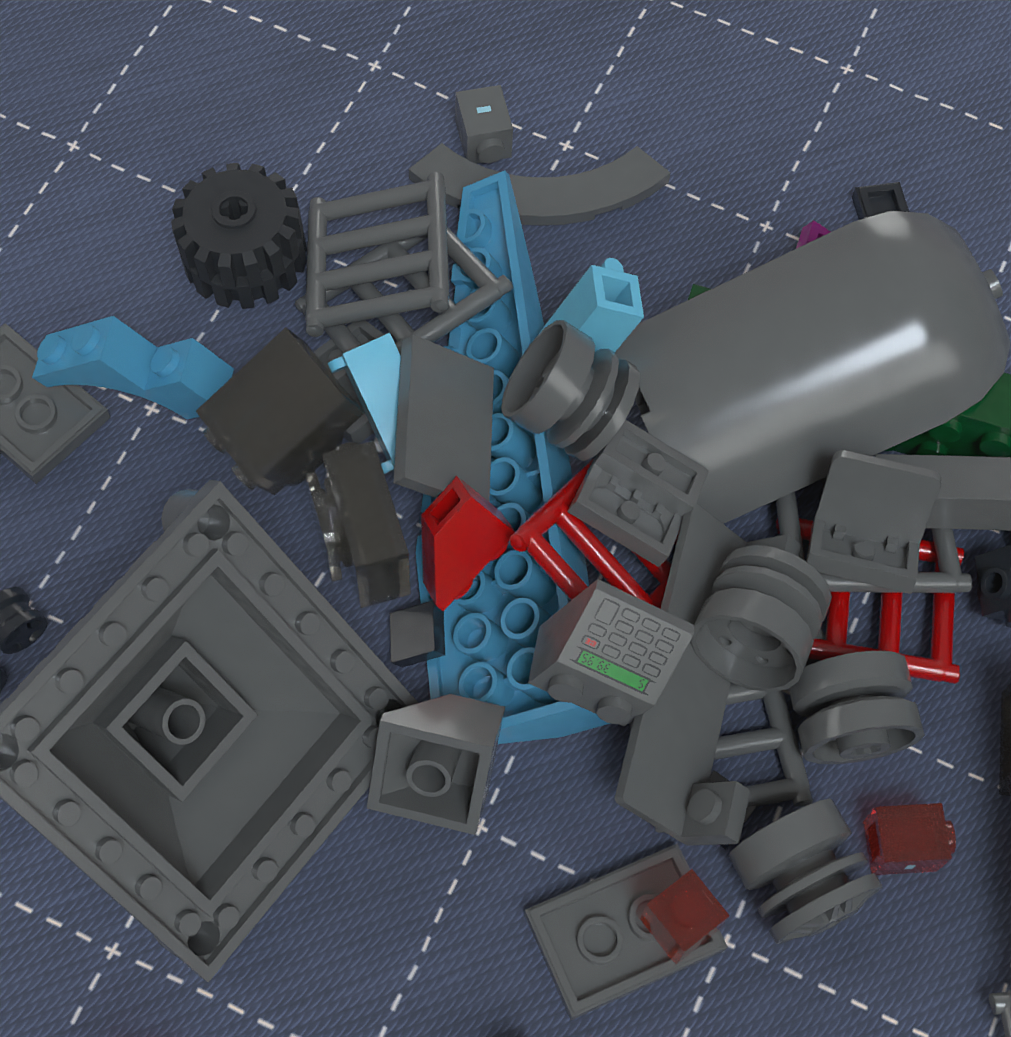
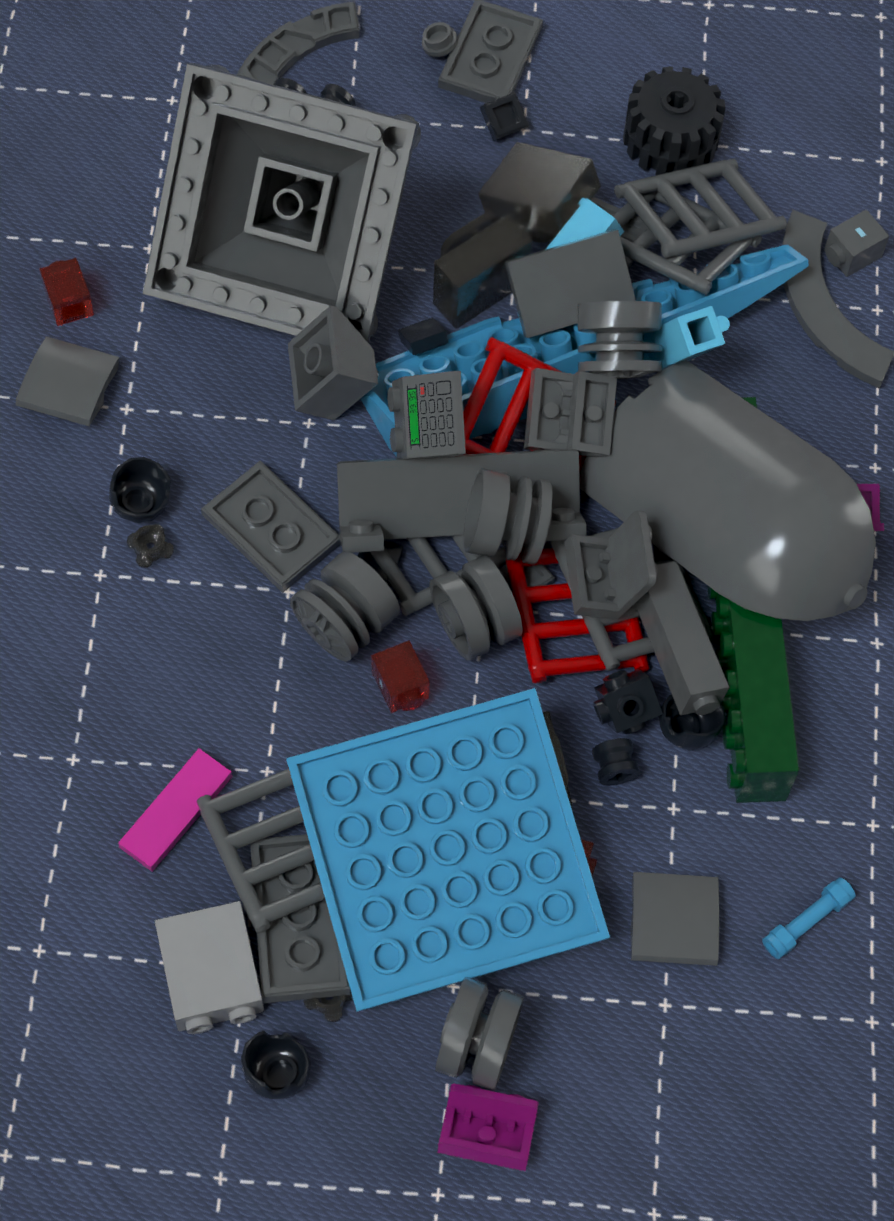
camera: 70 degrees right, 0 degrees up
(120, 359) = (537, 95): dark azure arch -> none
(128, 420) = (504, 116): none -> black tile
(459, 540) = (487, 317): red slope -> none
(684, 916) = (284, 541): clear red brick -> none

